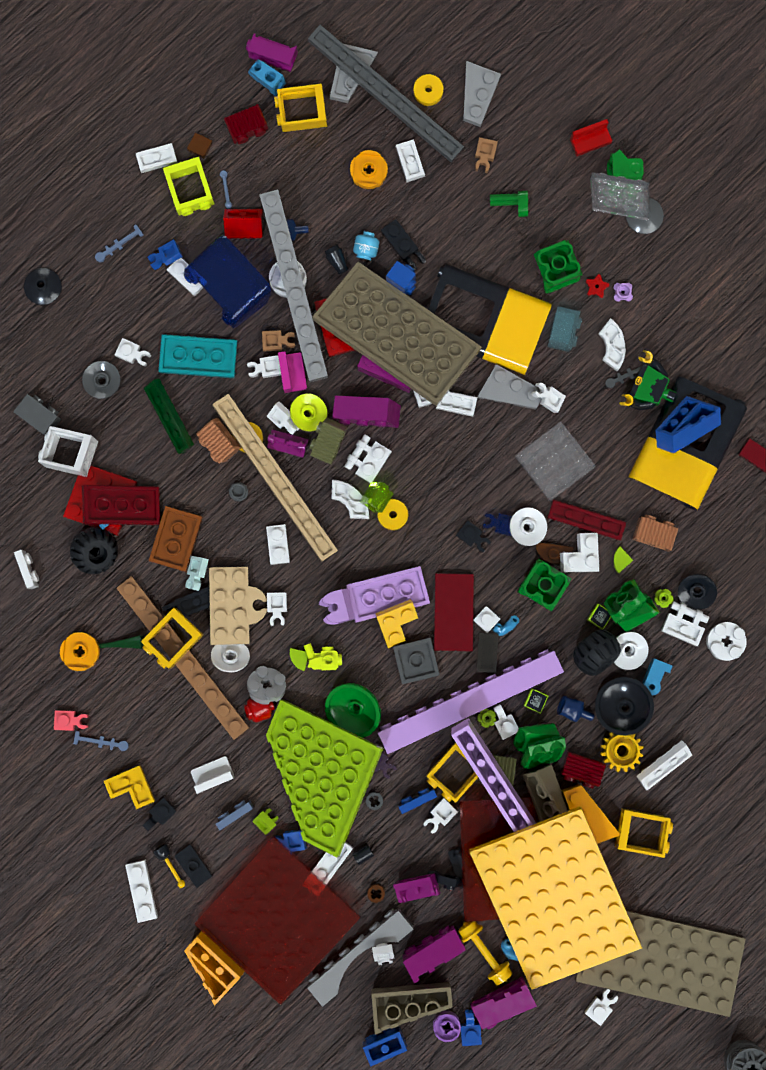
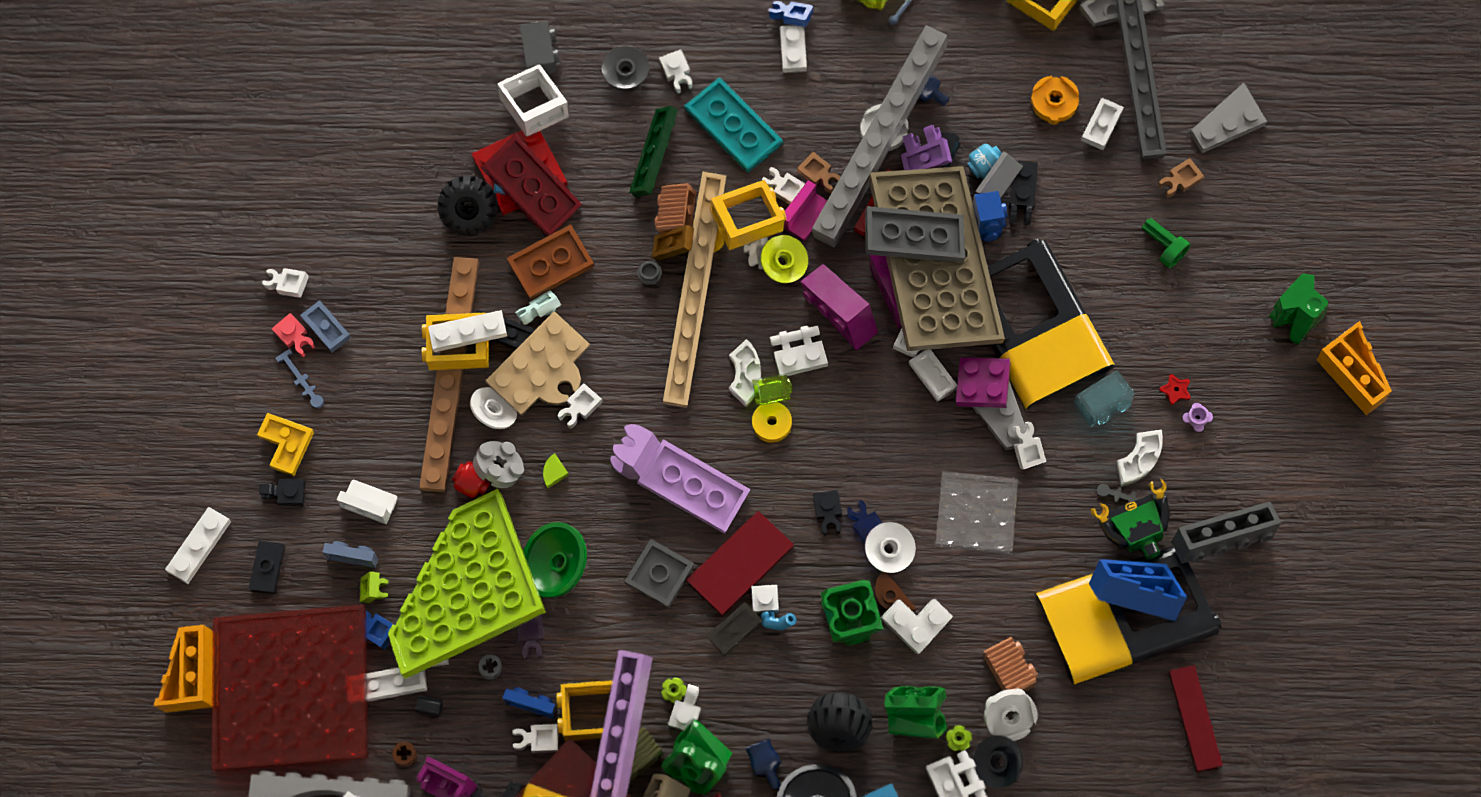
camera: 45 degrees right, 15 degrees down
(24, 561) = (396, 162): white plate -> none
(34, 694) = (288, 283): none -> white plate
(71, 659) = (366, 269): light orange plate -> none
(84, 699) = (325, 326): none -> sand blue plate
(134, 642) = (415, 315): dark green piece -> none
(162, 853) = (252, 528): hinge -> none
(175, 629) = (467, 331): none -> white plate
(229, 280) = (825, 81): clear blue windscreen -> none
(236, 462) = (672, 242): none -> pearl gold plate
(243, 223) = (888, 46): red panel -> none
(258, 424) = (736, 238): none -> yellow window
(278, 544) = (638, 352): white plate -> none
(287, 443) = (737, 270): magenta hinge -> none
(326, 660) = (576, 494): neon yellow piece -> none
(328, 440) = (776, 298): olive brick -> none
(331, 275) = (928, 156): none -> medium lavender plate
(375, 332) = (914, 234): none -> dark grey plate
(384, 249) = (1000, 175): none -> light grey tile
(392, 618) = (675, 511): yellow plate -> none
(428, 98) = (1185, 69): yellow piece -> none
(470, 702) = (674, 659): lavender brick -> none
(490, 382) = (983, 382): none -> magenta plate
(535, 700) = (736, 718): slope -> none
(558, 266) = (1152, 334): green piece -> none
(586, 520) = (954, 596): dark red tile -> none
(590, 138) = (1301, 250): red panel -> none
(599, 616) = (875, 696): slope -> none
(620, 196) = (1274, 318): clear plate -> none
(621, 559) = (951, 664): lime tile -> none
(636, 655) = (879, 768): white dish -> none
(650, 225) = (1285, 377): dark grey dish -> none
(678, 551) = (1007, 701): none -> white plate
(685, 184) = (1355, 369): none -> light orange wedge
(702, 348) = (1226, 532): none -> dark grey brick

